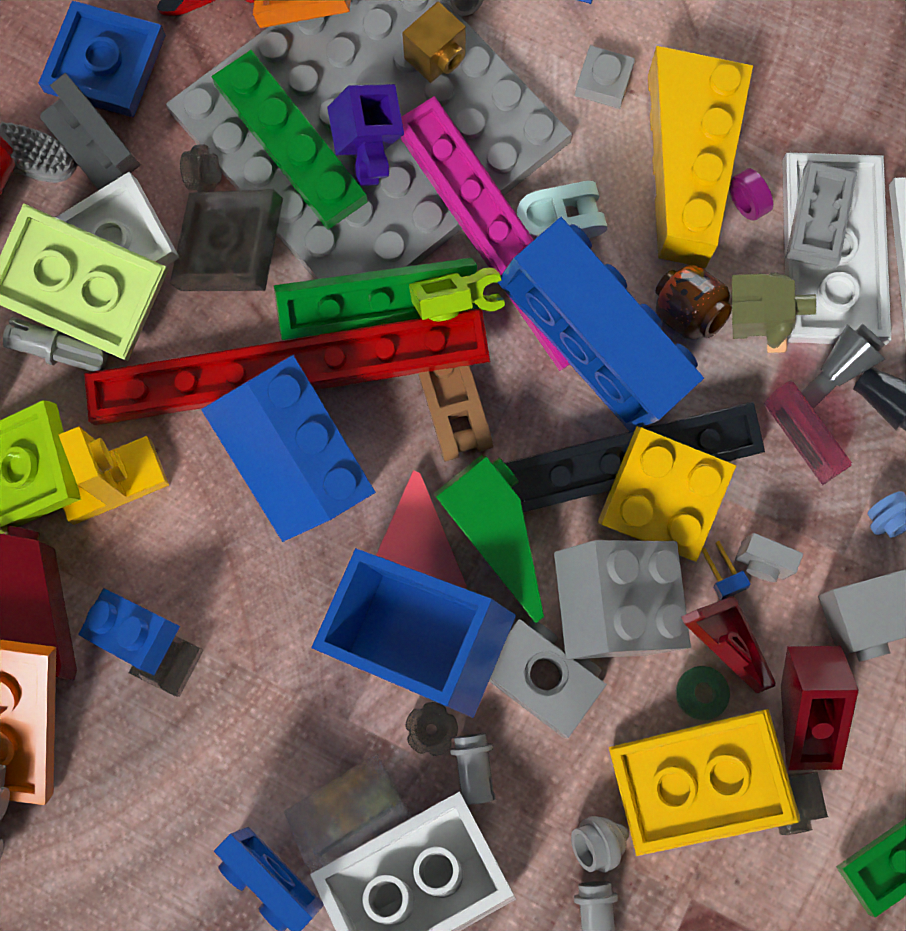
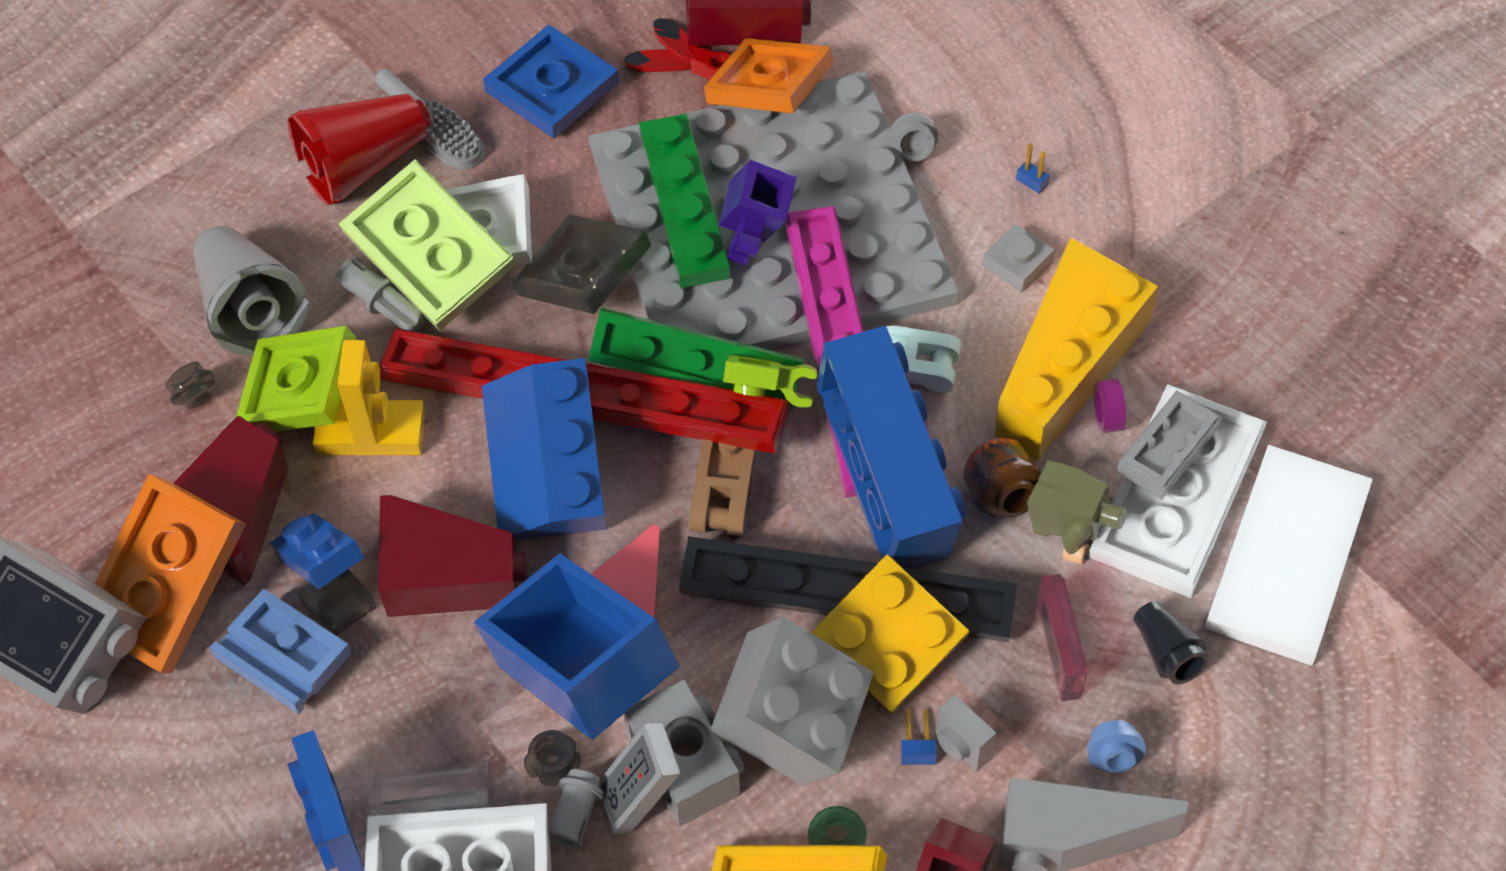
camera: 25 degrees right, 20 degrees down
(87, 135) = (503, 131): dark grey bracket -> none
(142, 735) = (281, 650): none -> medium blue plate
(200, 169) = (590, 197): clear smoke plate -> none
(245, 588) = (442, 561): none -> dark red slope
(435, 42) = (858, 163): pearl gold plate -> none
(494, 522) = (703, 585): green slope -> none
(525, 728) = (638, 778): none -> tile
(731, 639) = (889, 788): dark red tile -> none
(850, 357) = (1139, 582): dark grey cone -> none

